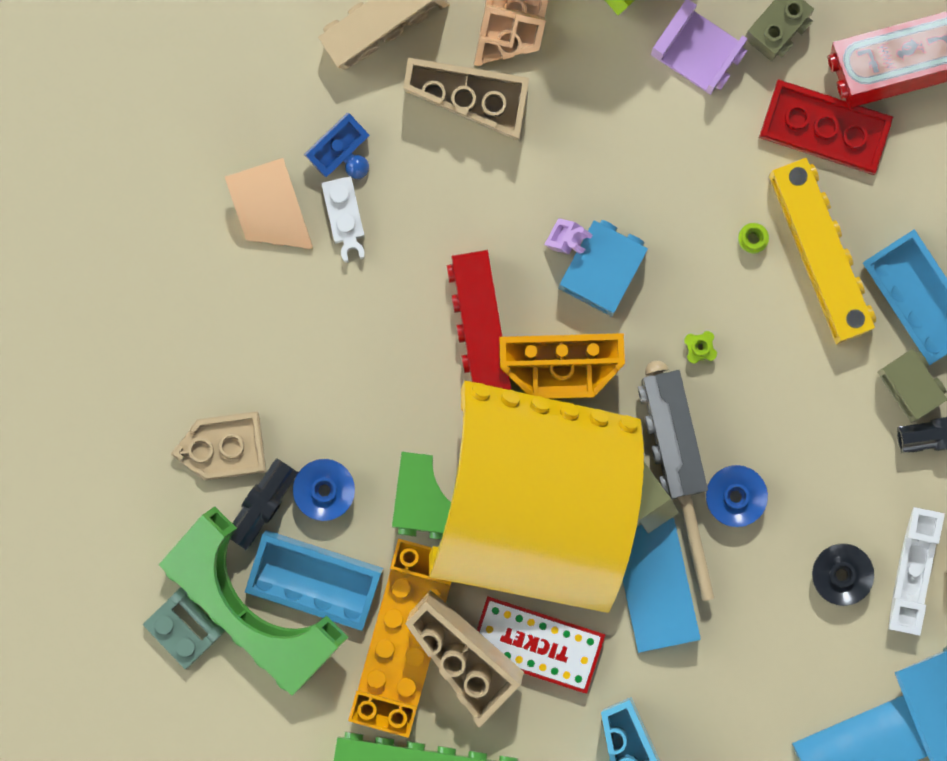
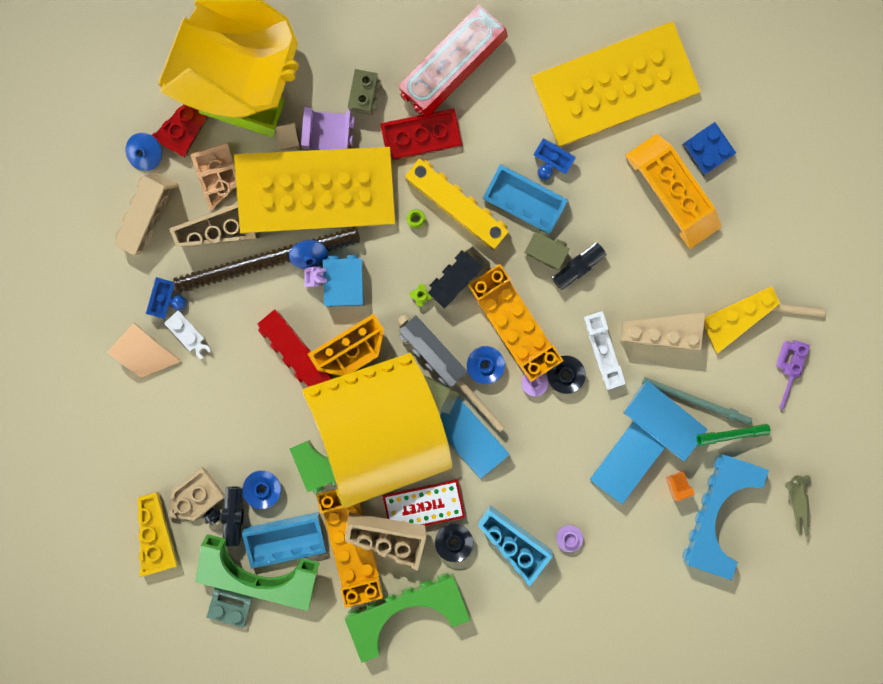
camera: 30 degrees left, 5 degrees up
(133, 477) = (154, 537): none -> yellow wing
(232, 487) = (212, 516): none -> black plate
(514, 177) = (256, 263): none -> dark brown piece
(567, 723) = (455, 552): none -> black dish
(576, 201) = (308, 254): none -> blue dish
(637, 118) = (314, 189): none -> yellow plate
(641, 26) = (288, 137): none -> tan panel
(766, 349) = (457, 276): none -> black wedge
(791, 561) = (536, 387): none -> lavender piece
(810, 459) = (514, 323): none -> light orange slope

